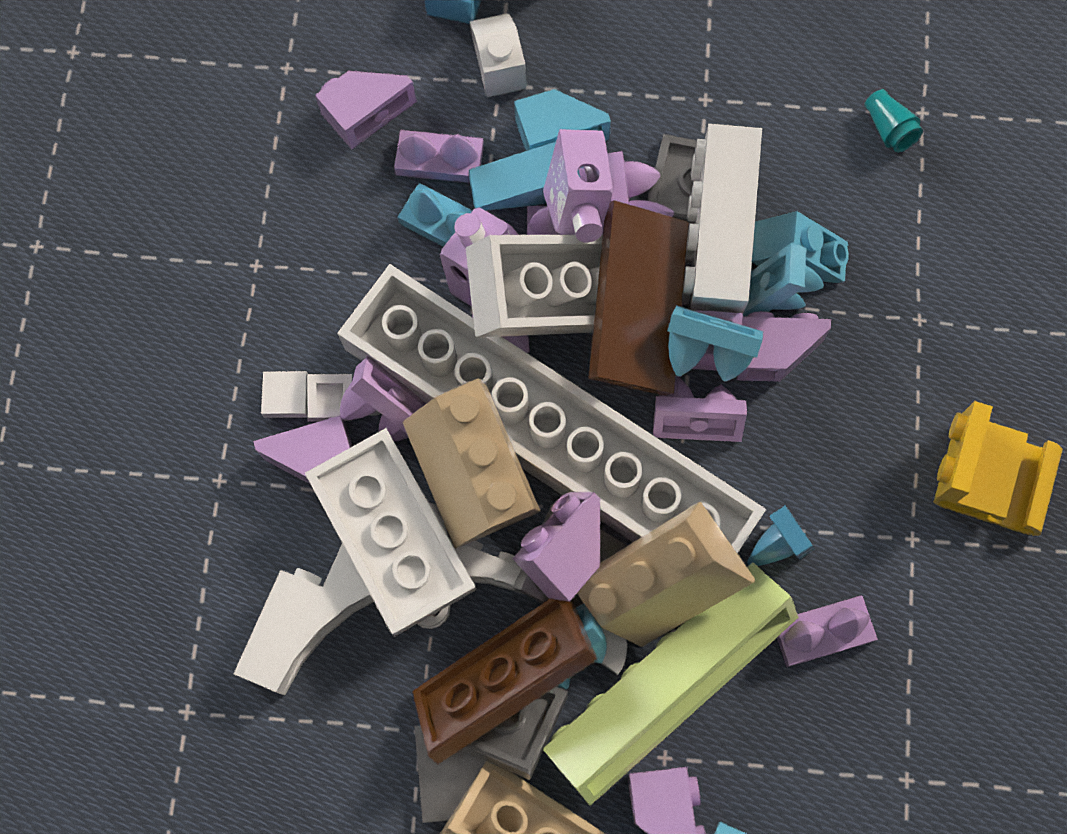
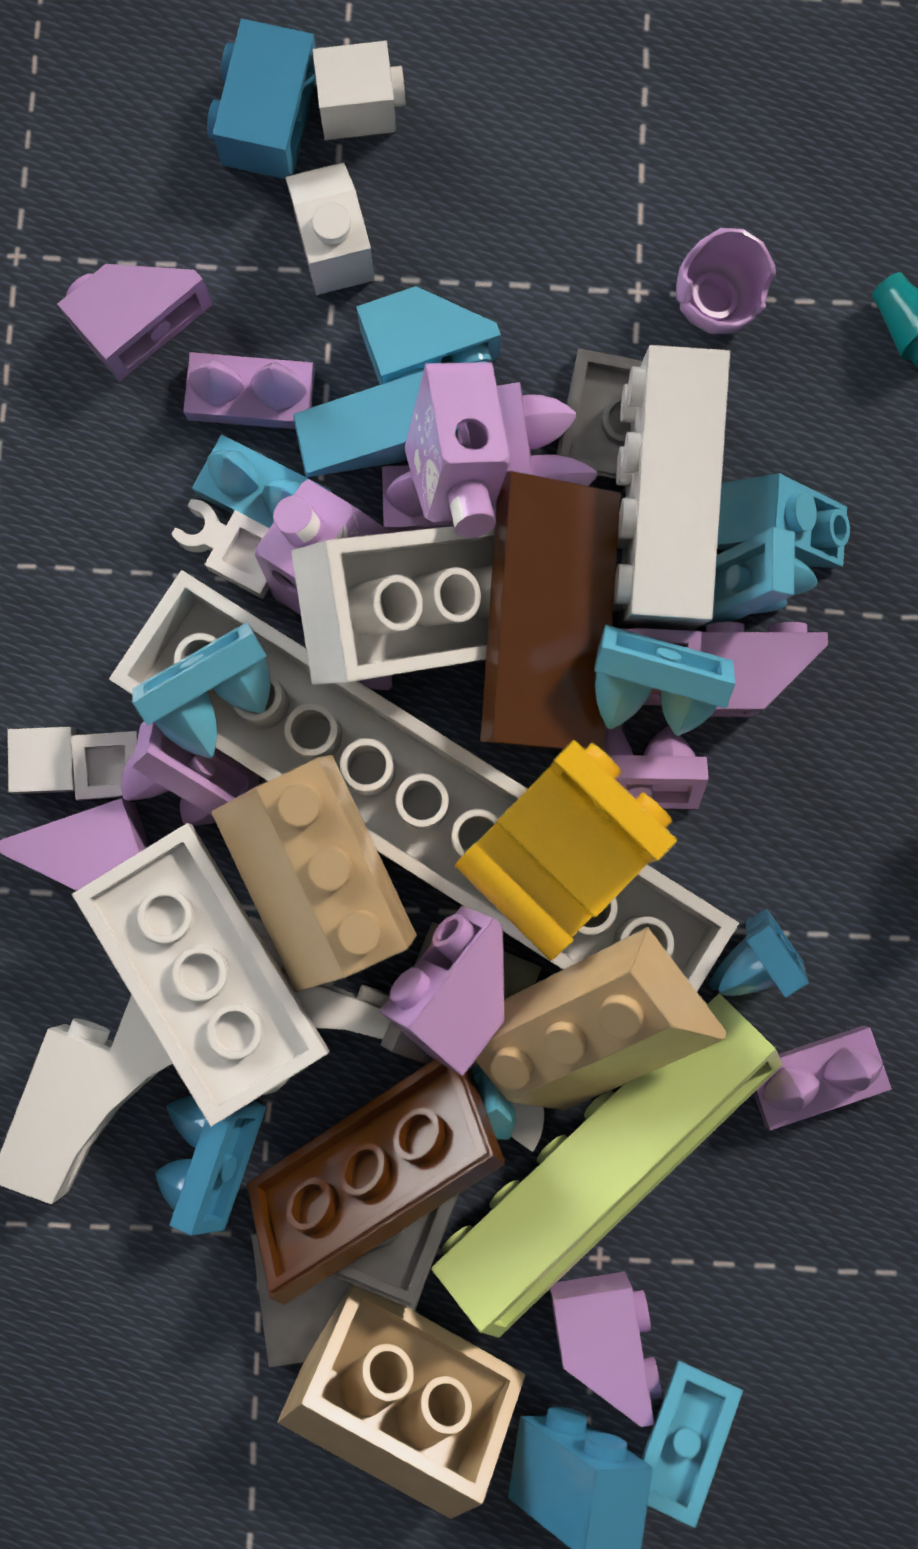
camera: 10 degrees left, 10 degrees up
(386, 348) = (178, 695): none -> medium azure tile
(397, 659) = (207, 1185): none -> dark azure tile
(422, 256) = (231, 547): none -> white plate
(646, 448) = (566, 848): none -> yellow piece
(763, 91) = (725, 281): none -> lavender hair

